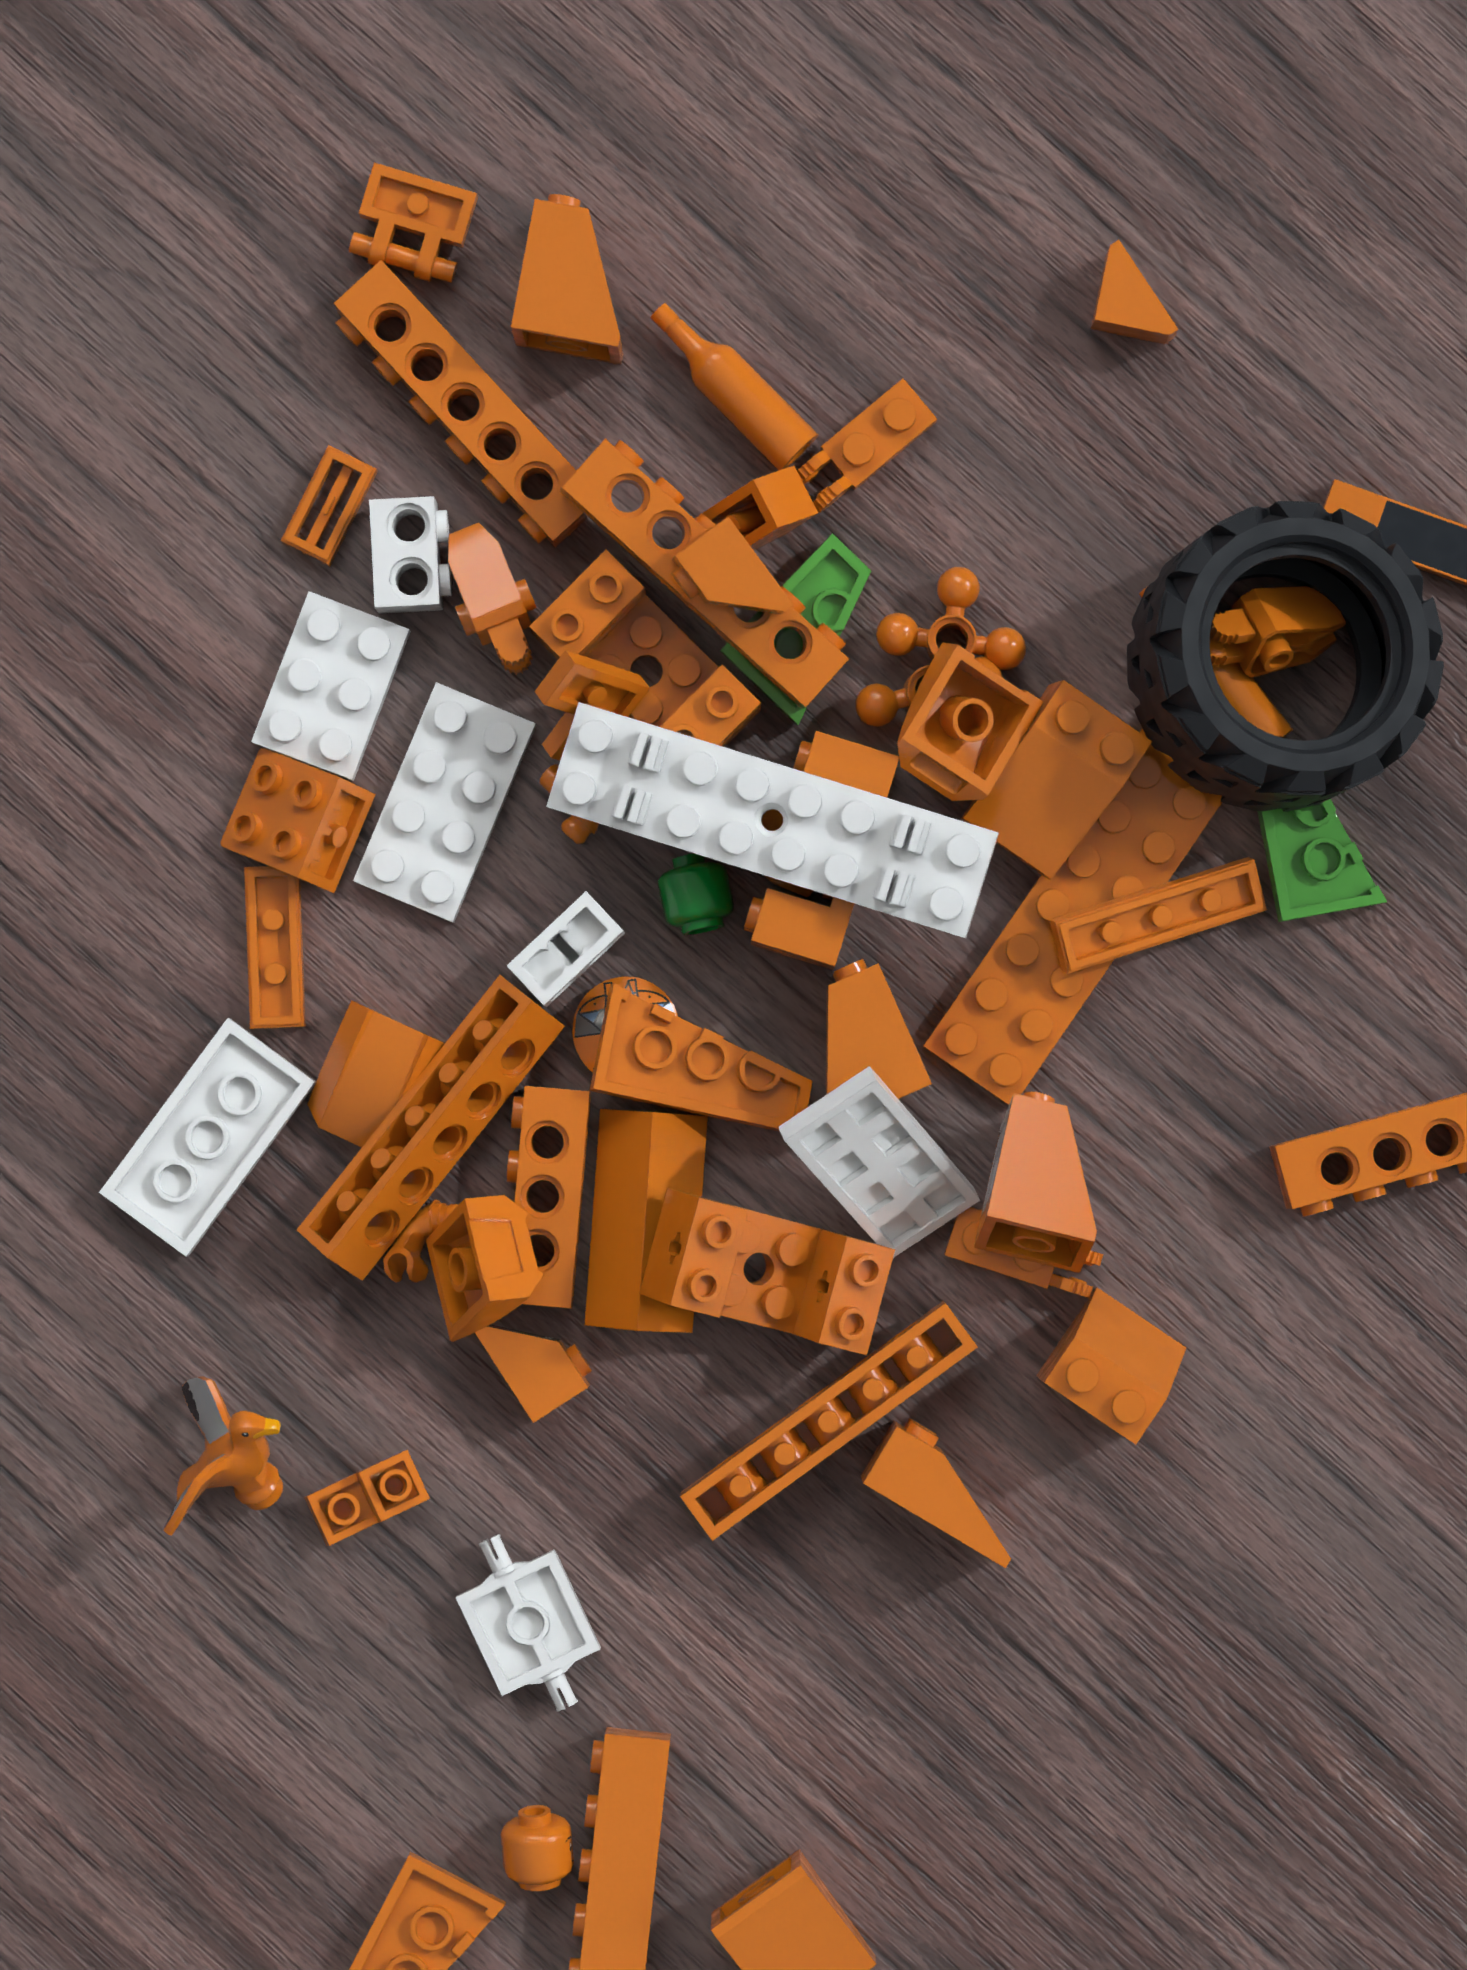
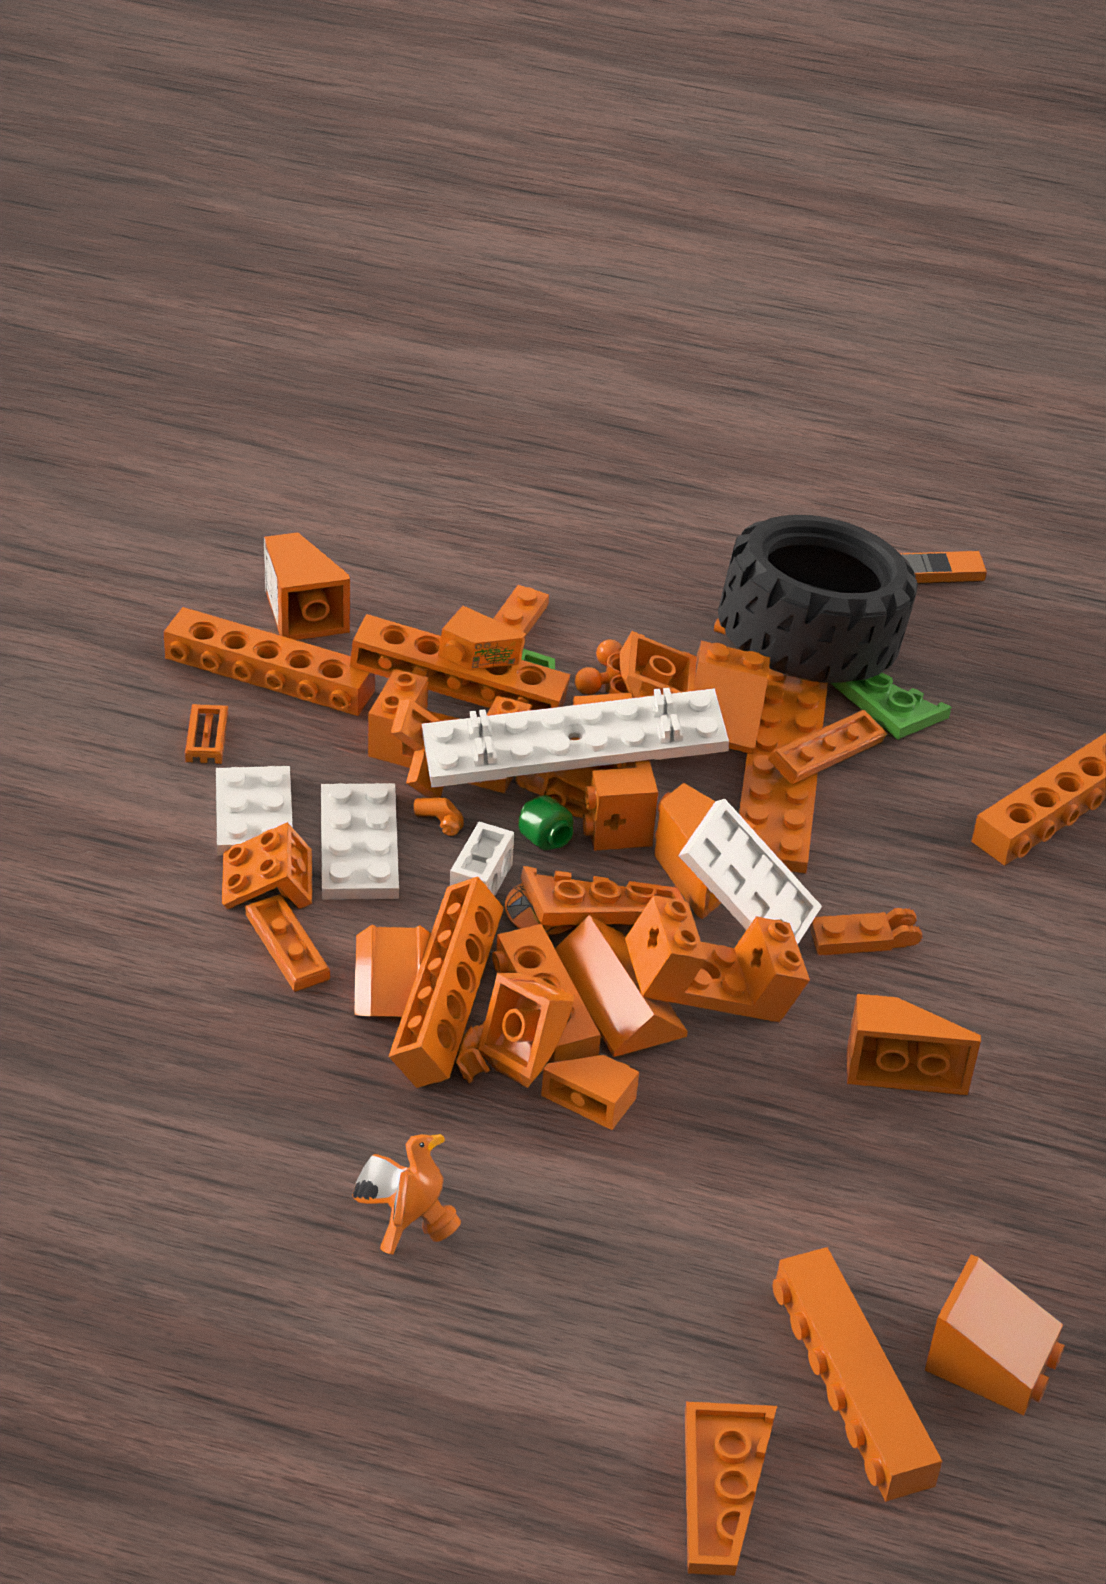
camera: 35 degrees left, 45 degrees down
(207, 1137) = (296, 1047): white plate -> none
(367, 1497) = (524, 1208): orange slope -> none
(394, 556) = (270, 731): white brick -> none
(418, 207) = (191, 593): orange plate -> none
(492, 599) = (334, 732): orange hinge -> none
(528, 1622) = (681, 1233): white plate -> none
(537, 1848) = (776, 1362): orange head -> none
(740, 393) = (415, 608): orange piece -> none
(828, 1420) = (805, 1043): orange brick -> none
(1037, 1188) = (857, 870): orange slope -> none
(1114, 1365) = (965, 953): orange slope -> none
(1128, 303) = (625, 522): orange slope -> none

